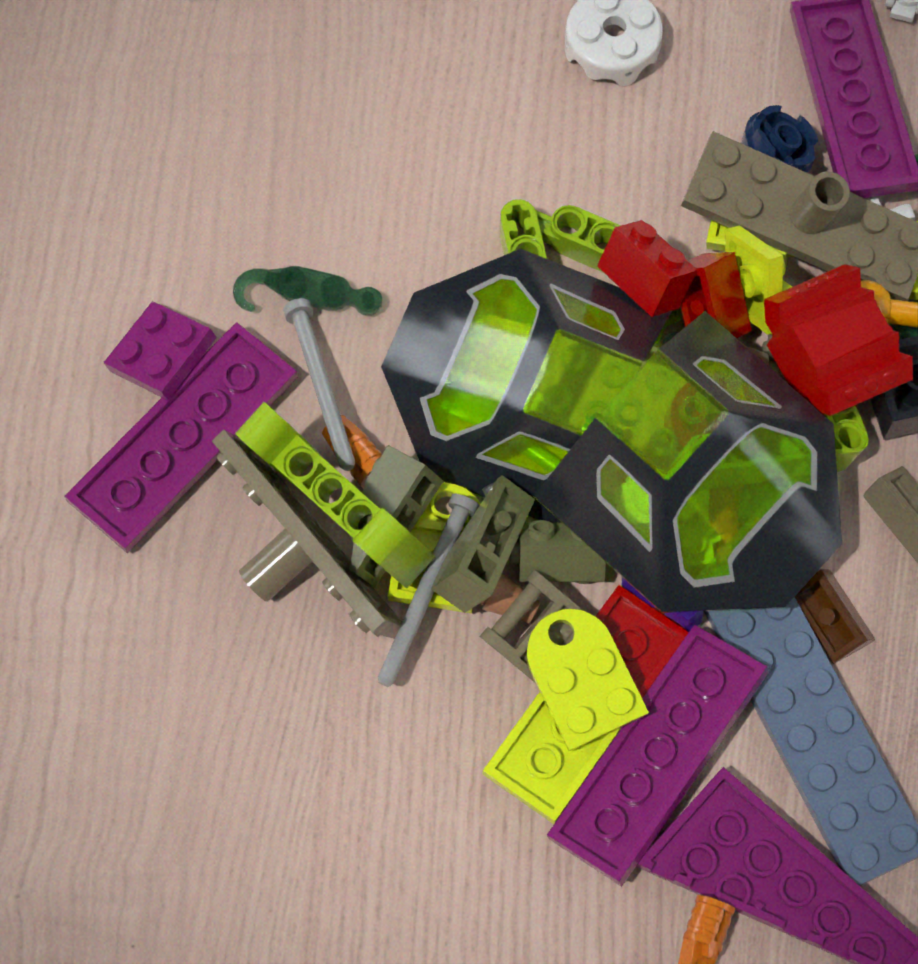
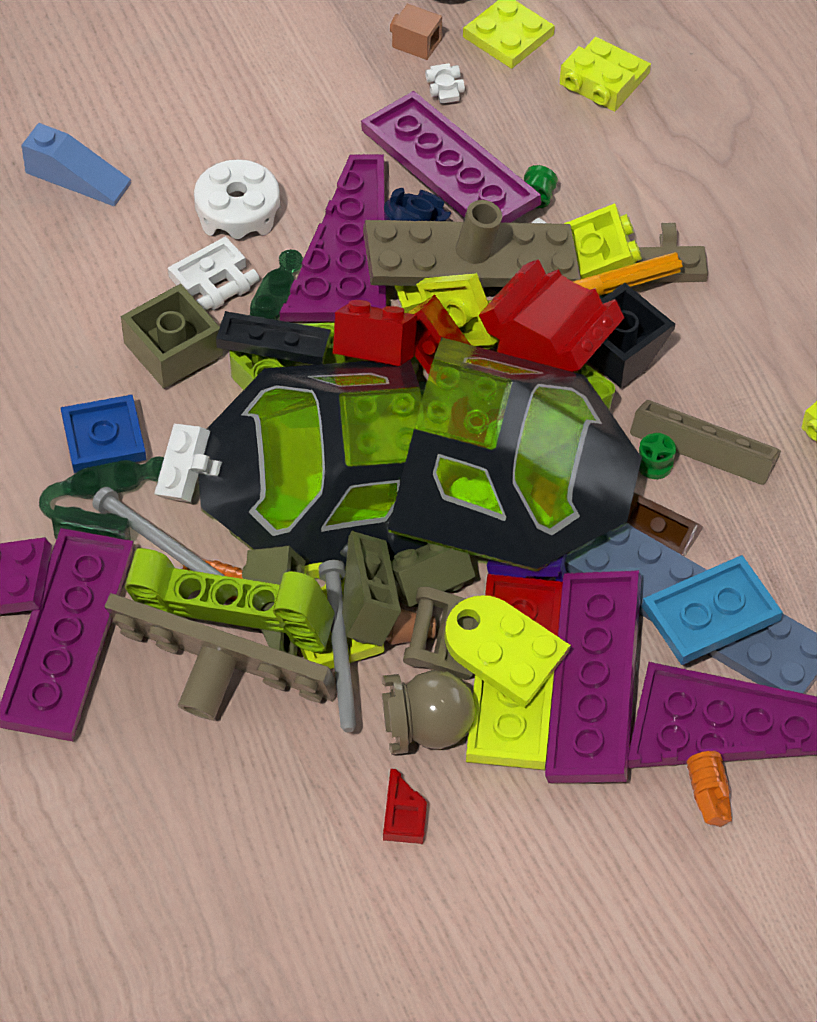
camera: 30 degrees left, 15 degrees down
(258, 323) = (89, 522): none -> clear green plate
(336, 236) = (103, 432): none -> blue plate
(389, 312) = (184, 462): none -> white plate
(392, 795) = (404, 812): none -> red tile
(458, 162) = (171, 335): none -> olive brick
(468, 707) = (429, 710): none -> dark tan tile
(542, 99) = (210, 266): none -> white plate
(549, 219) = (273, 338): none -> black plate
(583, 163) = (276, 286): none -> clear green piece
(658, 168) = (336, 259): none -> magenta wing
(818, 747) = (712, 609): none -> dark azure plate
(876, 529) = (652, 447): none -> green wheel

